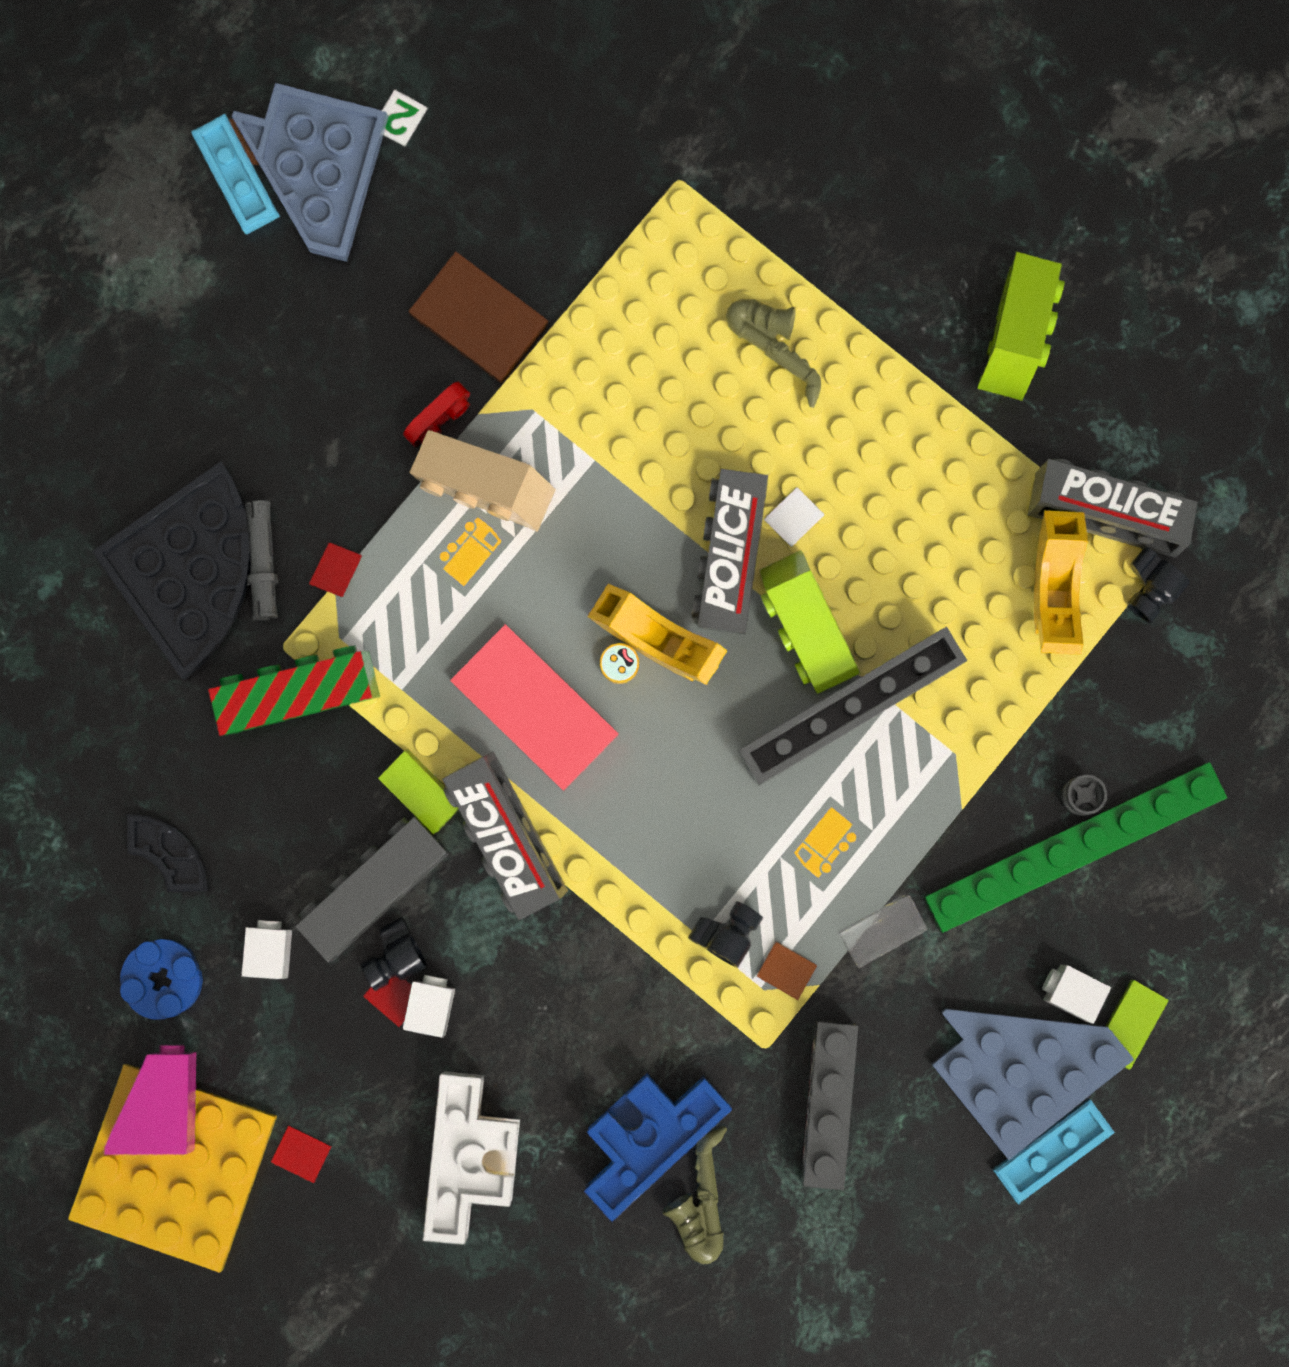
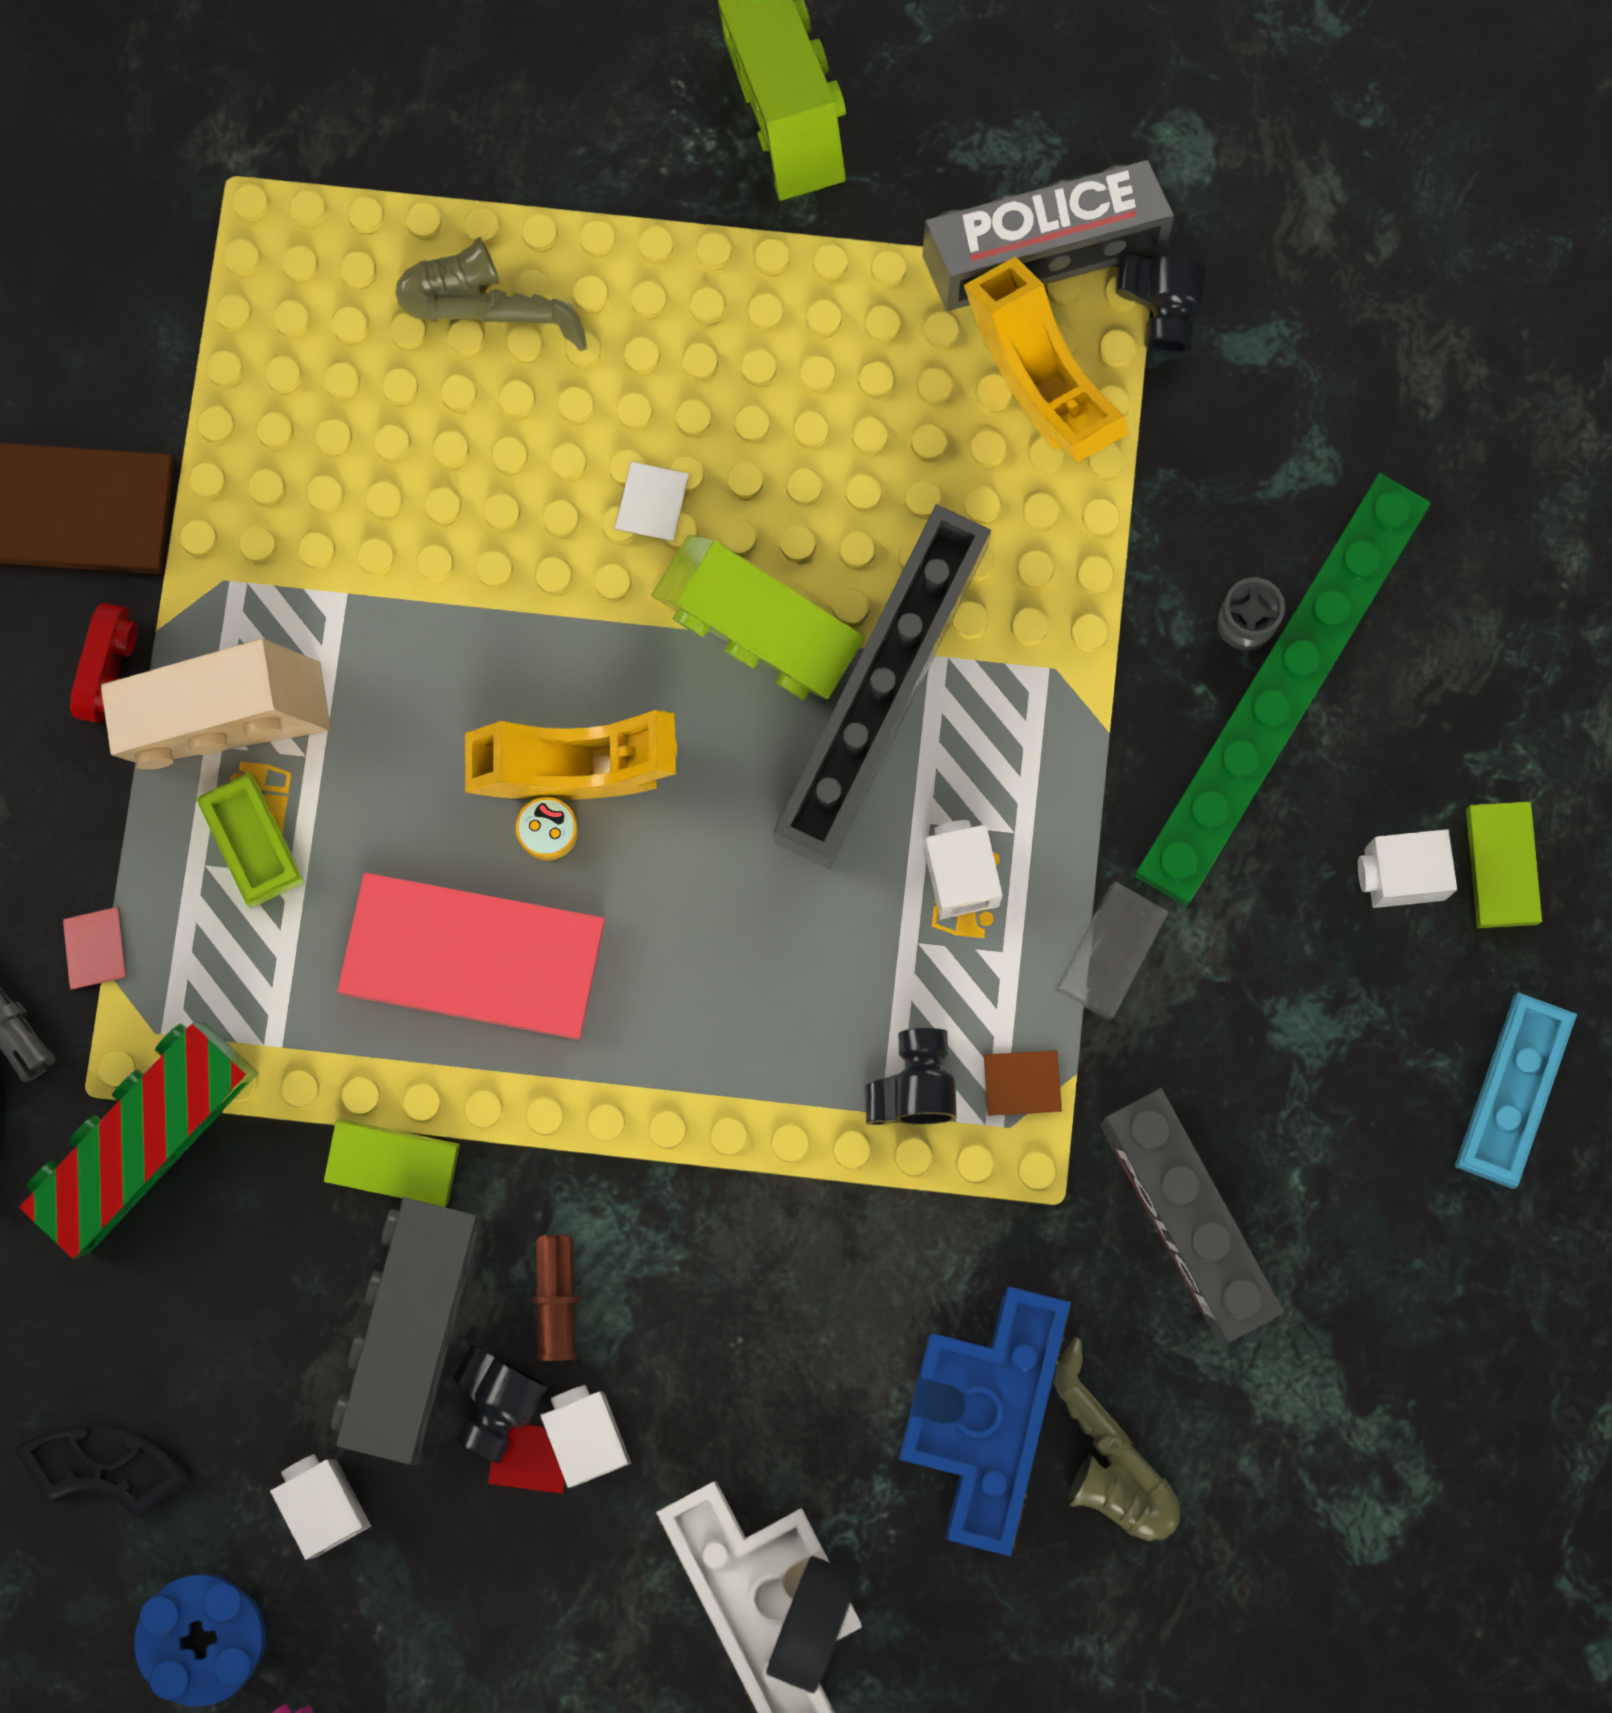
camera: 30 degrees left, 5 degrees down
(455, 565) = (250, 840): none -> lime tile
(460, 922) = (555, 1298): none -> copper axle
(483, 1191) = (812, 1624): none -> black tyre
(504, 836) = (539, 1145): dark grey brick -> none
(732, 551) = (601, 592): dark grey brick -> none
(830, 834) = (962, 869): none -> white brick
(1025, 1071) = (1412, 1011): sand blue wing -> none

